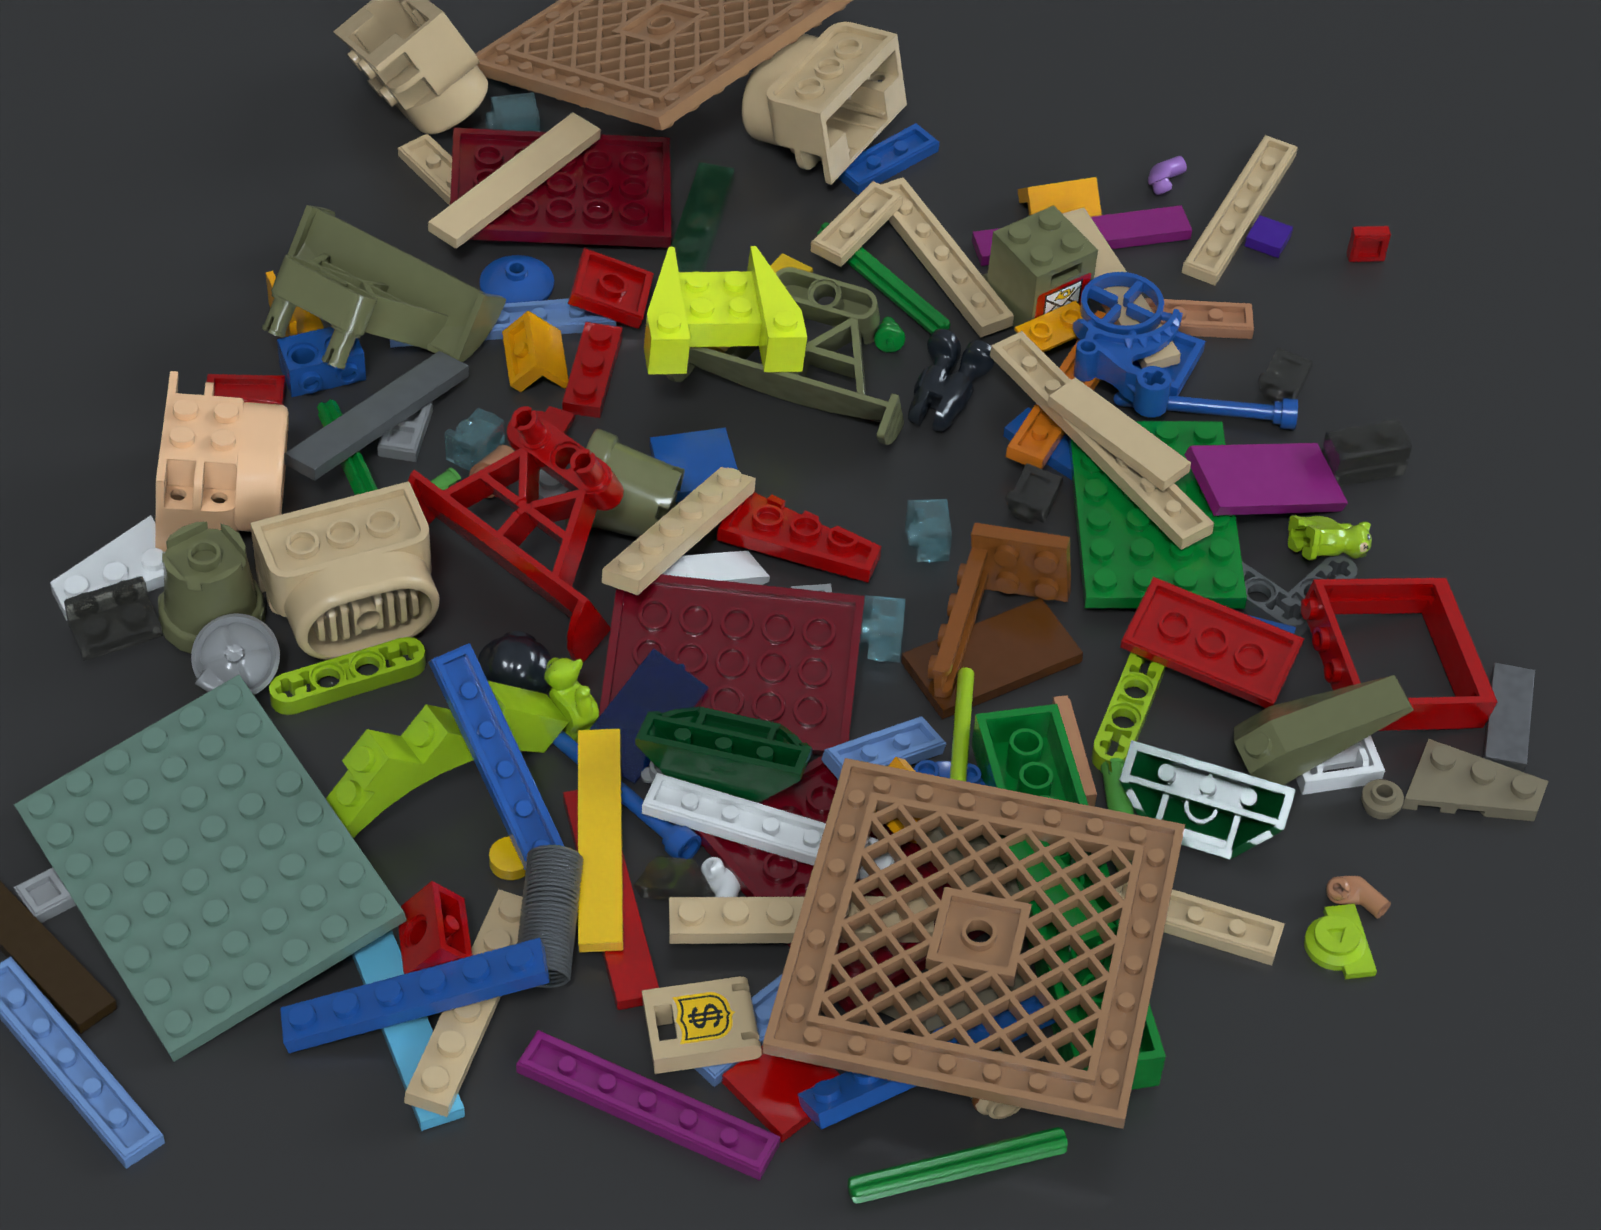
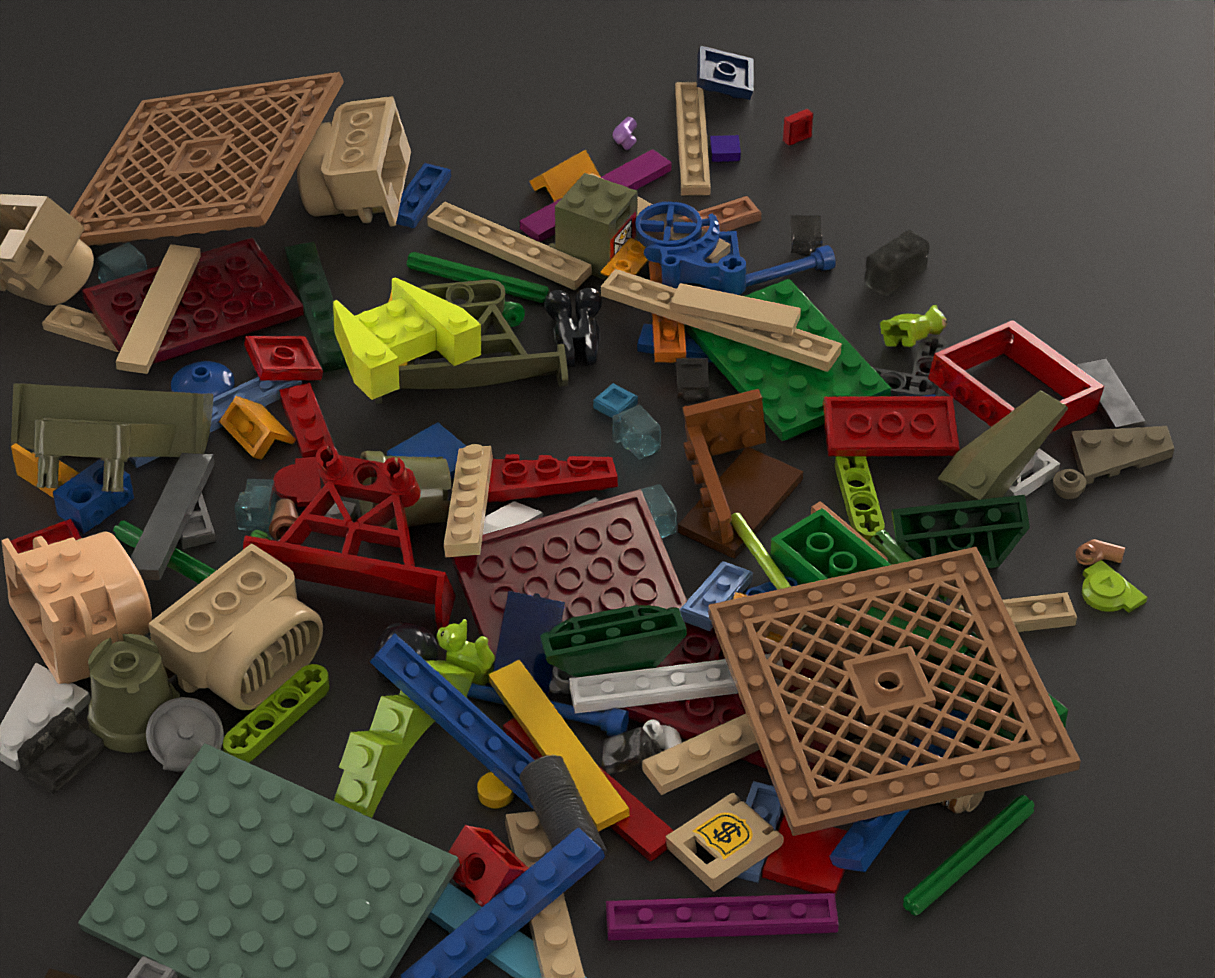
camera: 25 degrees left, 5 degrees down
(856, 223) = (435, 244): tan tile -> none
(935, 483) = (614, 400): none -> dark azure tile
(1265, 478) = (847, 304): magenta tile -> none
(1328, 145) = (725, 73): none -> dark blue plate

